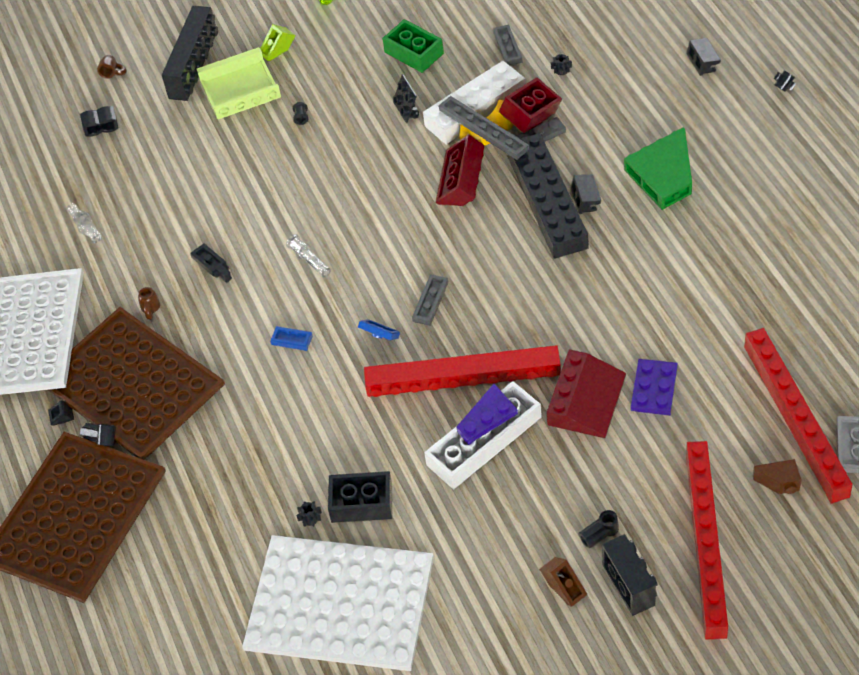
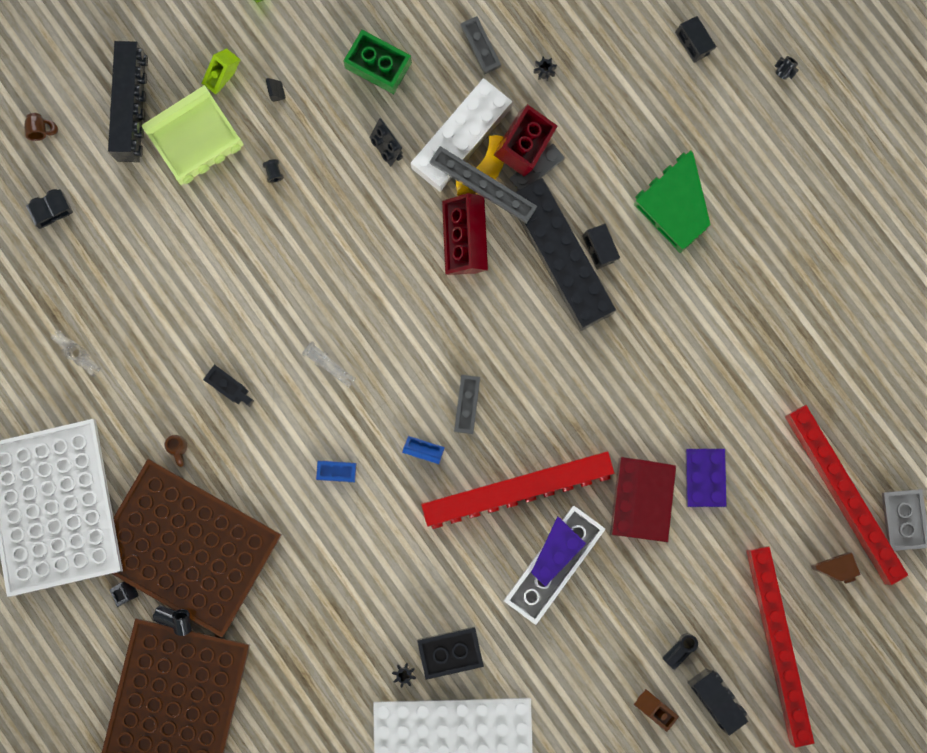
camera: 15 degrees left, 30 degrees up
(319, 60) = (275, 89): none -> black slope

